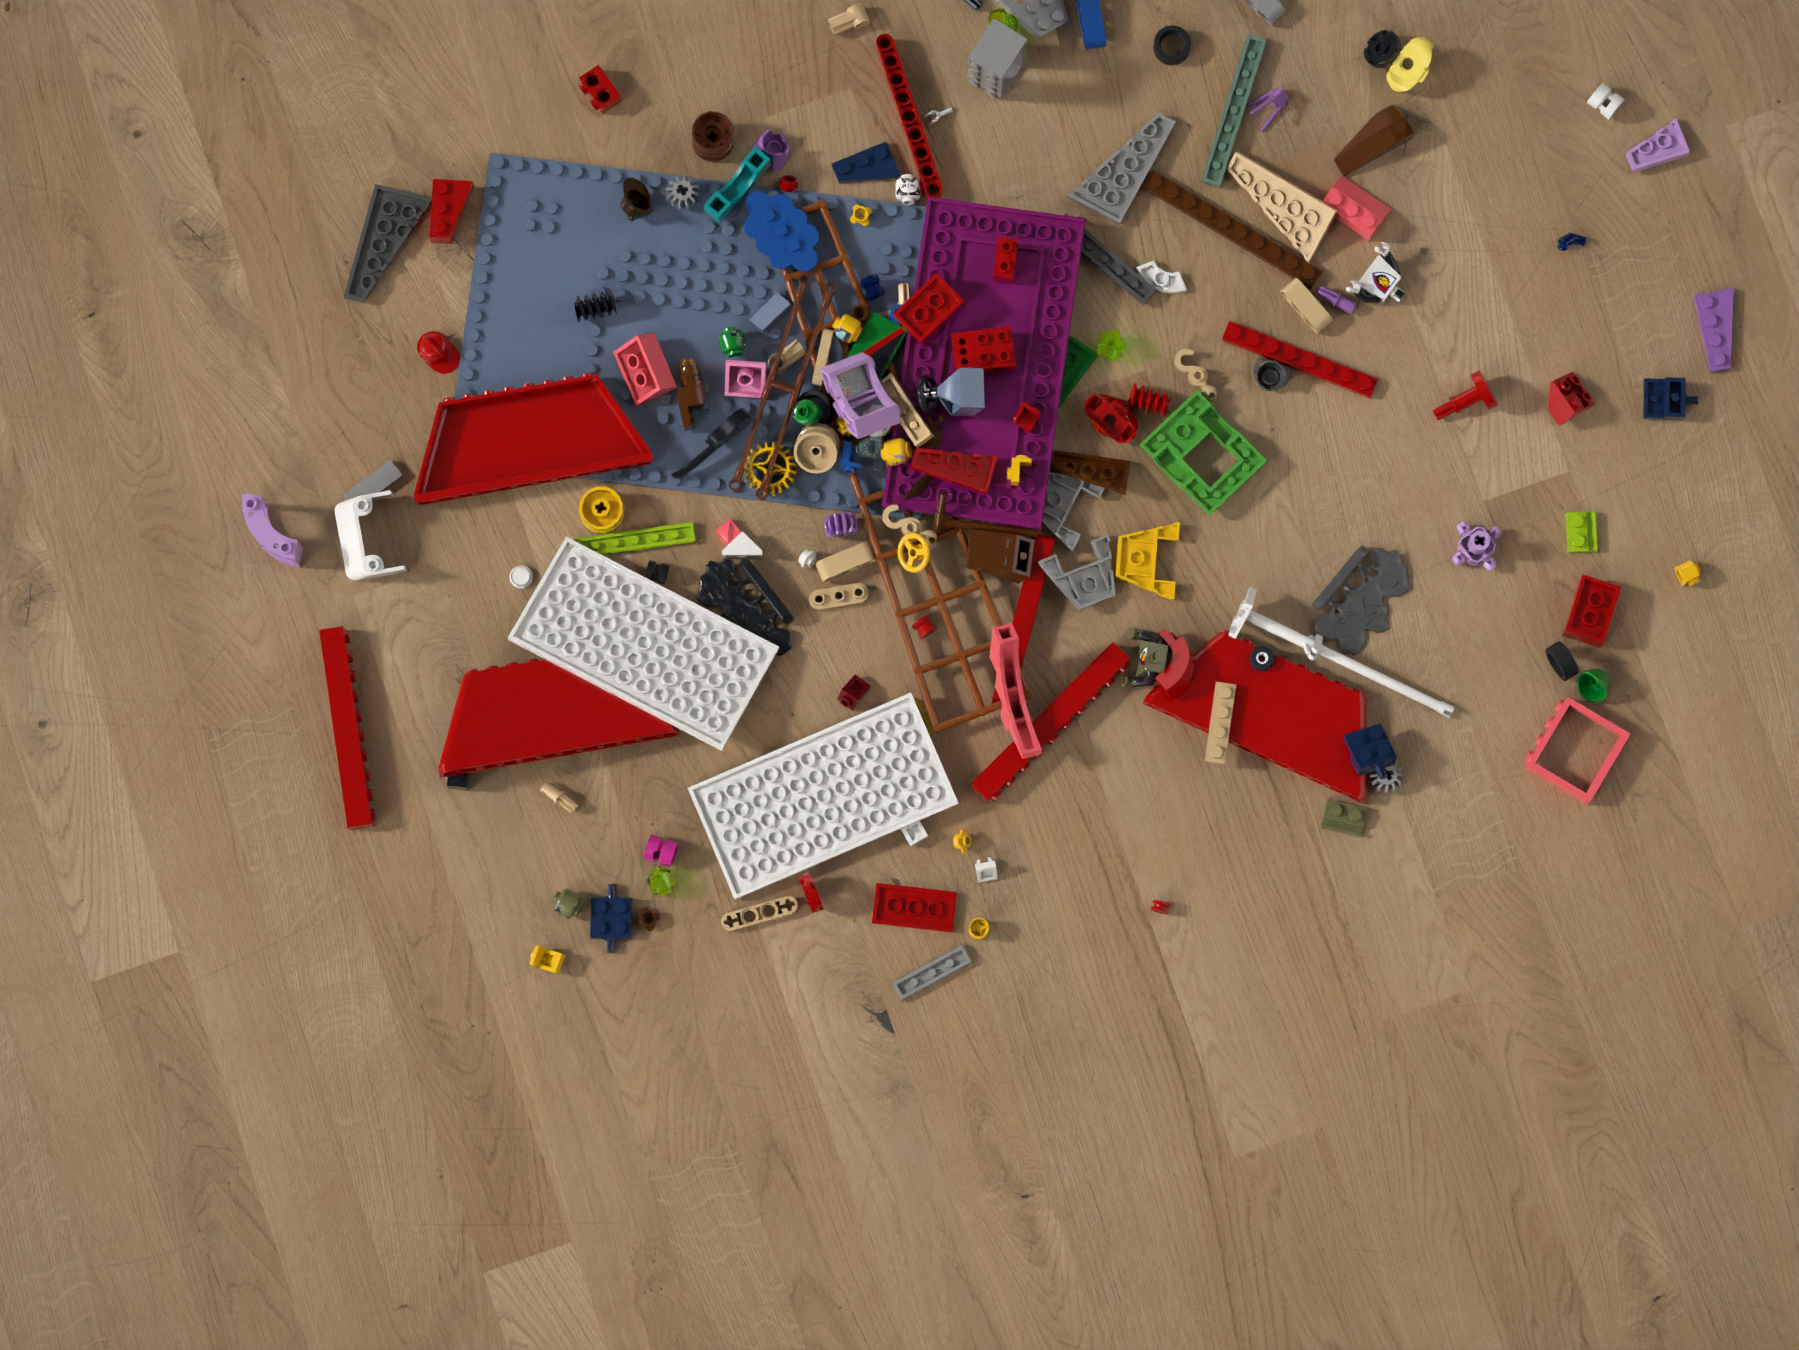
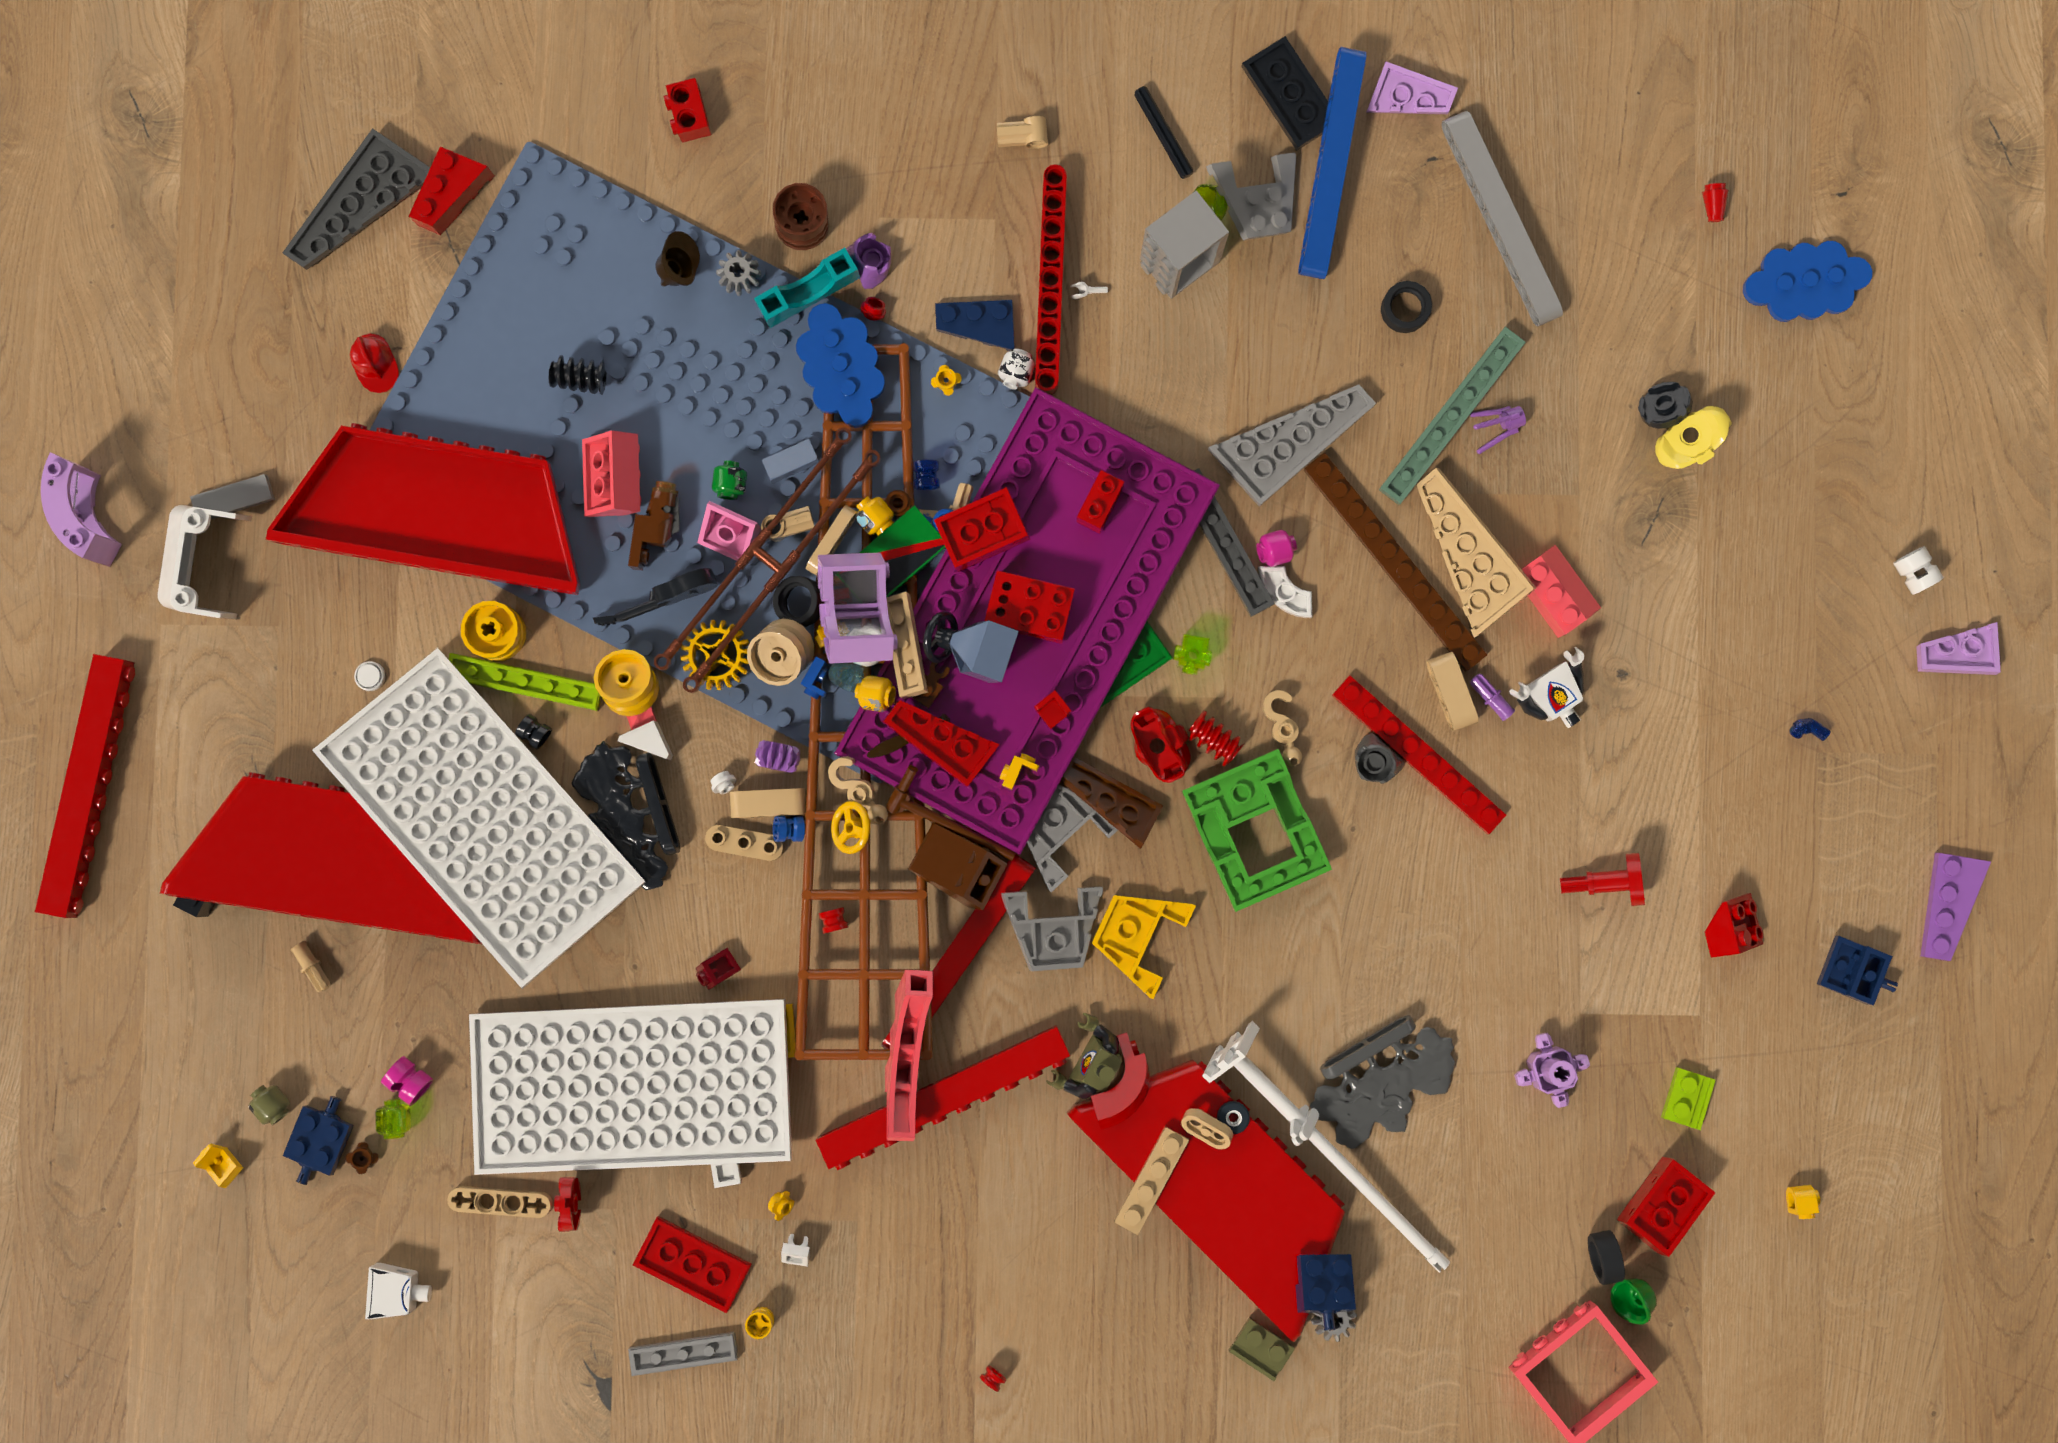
camera: 20 degrees right, 5 degrees up
(708, 1003) = (393, 1291): none -> white torso
(712, 511) = (626, 682): none -> yellow wheel
(807, 412) = (783, 604): green head -> none
(867, 573) = (788, 828): none -> blue wheel
(1142, 249) = (1276, 548): none -> dark pink head
(1245, 671) = (1207, 1128): none -> tan plate
(1379, 136) = (1618, 512): reddish brown wedge -> none

